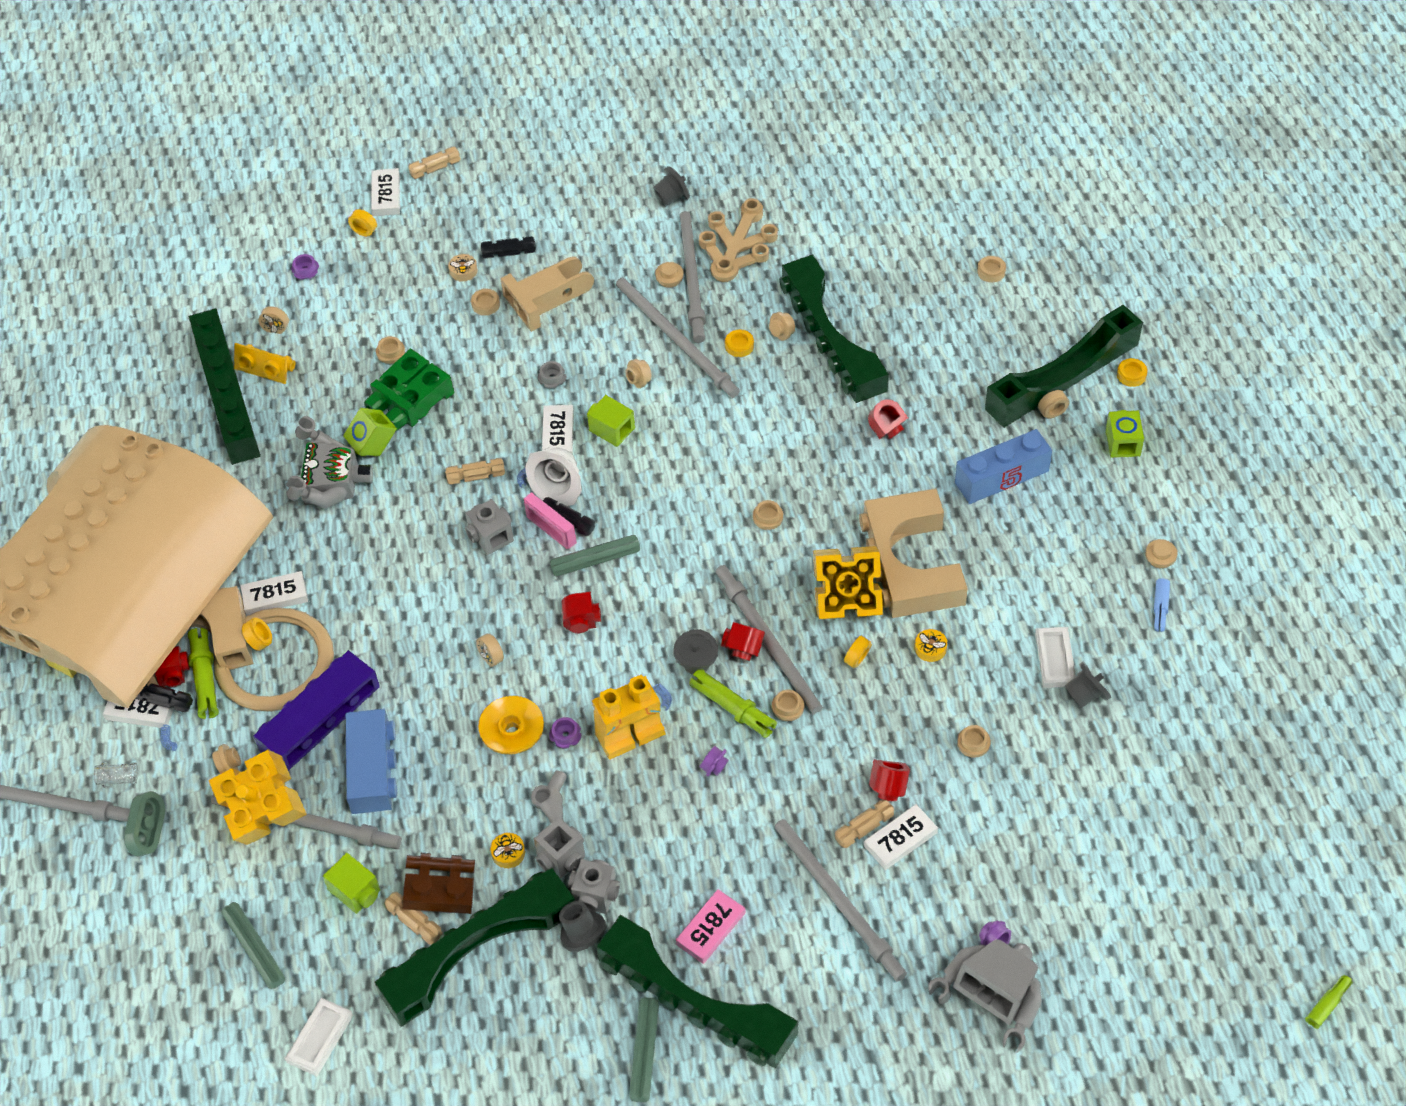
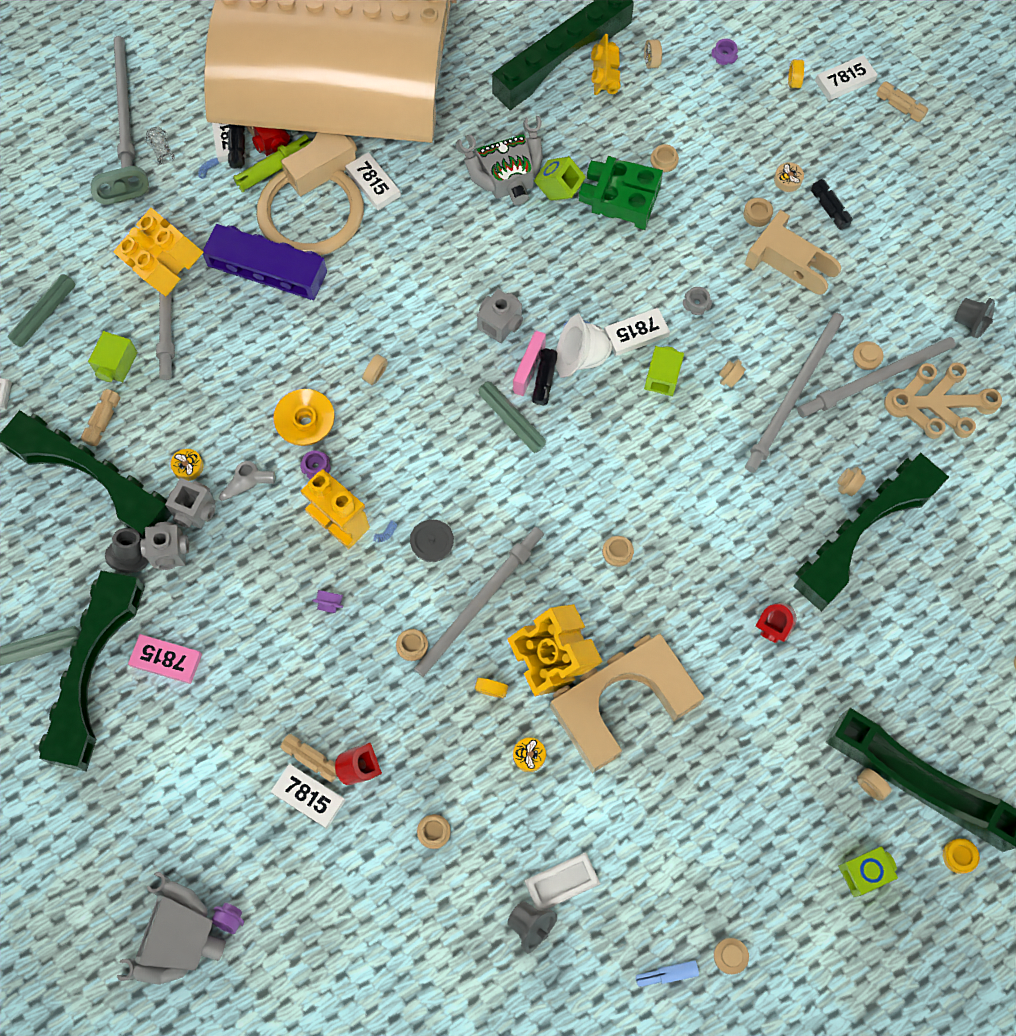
camera: 65 degrees right, 15 degrees up
(226, 758) = (197, 216): tan plate -> none
(257, 633) = (316, 183): yellow tile -> none
(370, 761) = (230, 321): medium blue brick -> none
(436, 892) = (124, 426): reddish brown plate -> none
(475, 471) = (562, 281): tan axle -> none
(580, 612) = (440, 428): red plate -> none
(739, 343) = (814, 450): yellow tile -> none
(743, 641) = (462, 578): red plate -> none
(743, 710) = (391, 605): lime pin -> none
(878, 948) = (185, 815): light grey bar -> none
(1003, 466) = (768, 757): medium blue brick -> none

